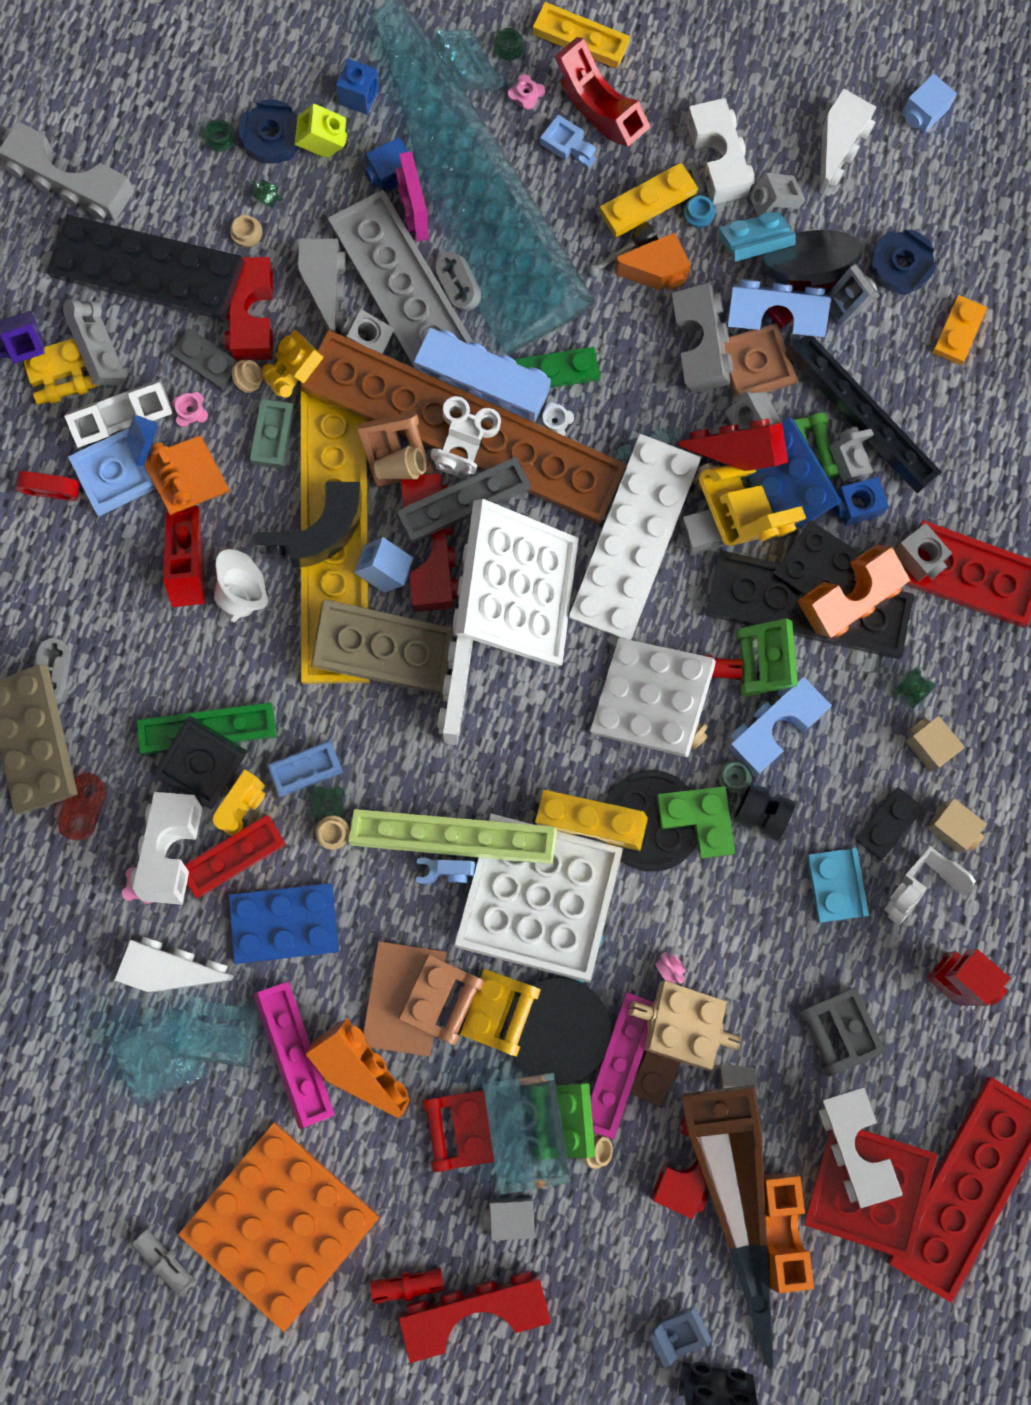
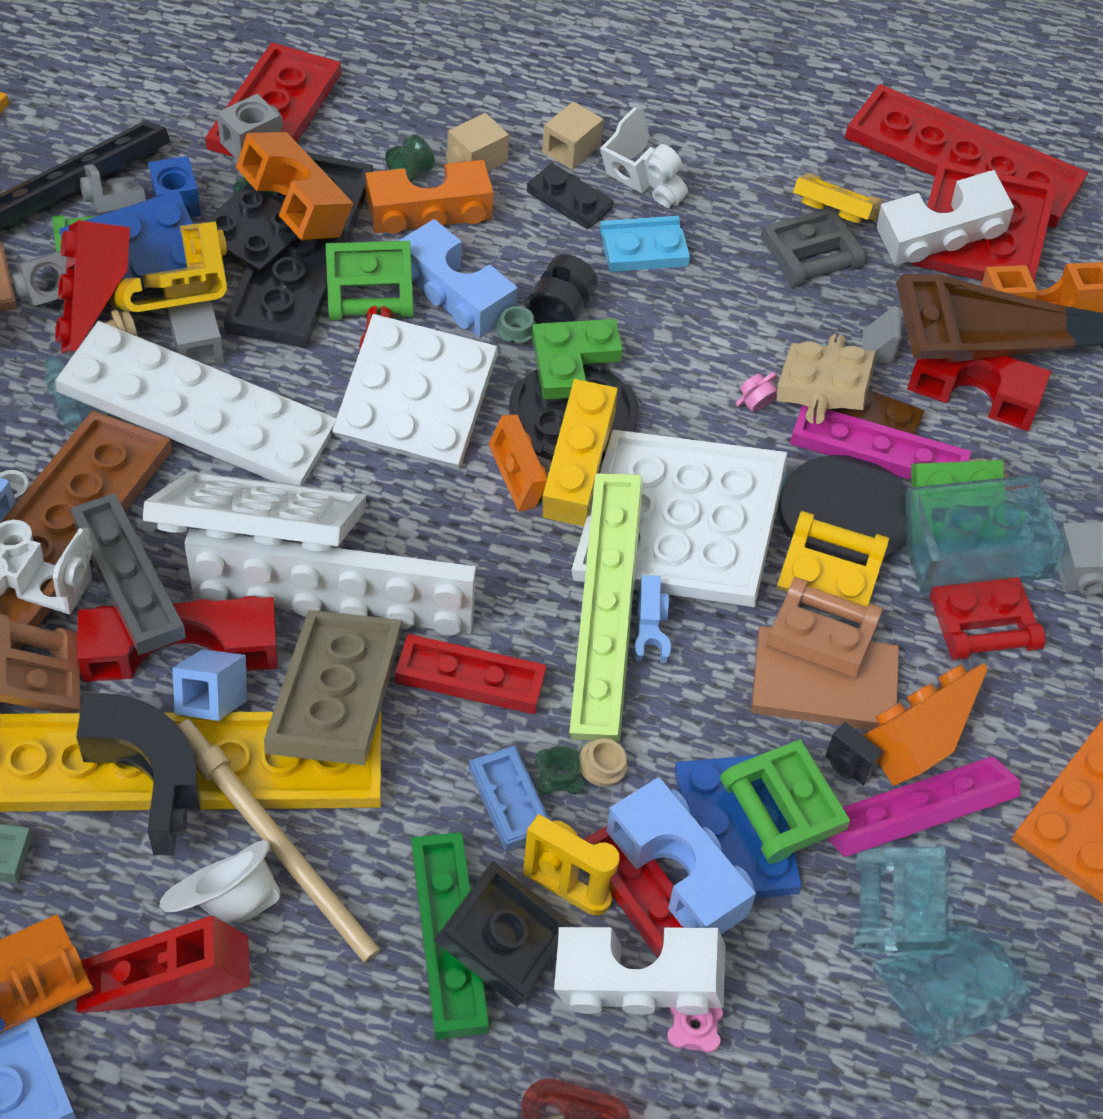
camera: 90 degrees left, 25 degrees down
(156, 970) = (826, 983): white slope -> none
(267, 863) = (659, 825): none -> light blue arch
(290, 964) = (798, 792): none -> bright green plate
(319, 572) = (215, 766): none -> tan bar
(332, 1009) = (853, 754): none -> black plate
(403, 464) = (61, 648): tan cone -> none
(403, 741) = (470, 674): none -> red plate
(577, 781) = (518, 462): none -> orange plate
(871, 732) = (401, 206): none -> orange arch
(893, 1056) = (851, 204): none -> yellow plate
(969, 978) = (755, 95): red arch -> none

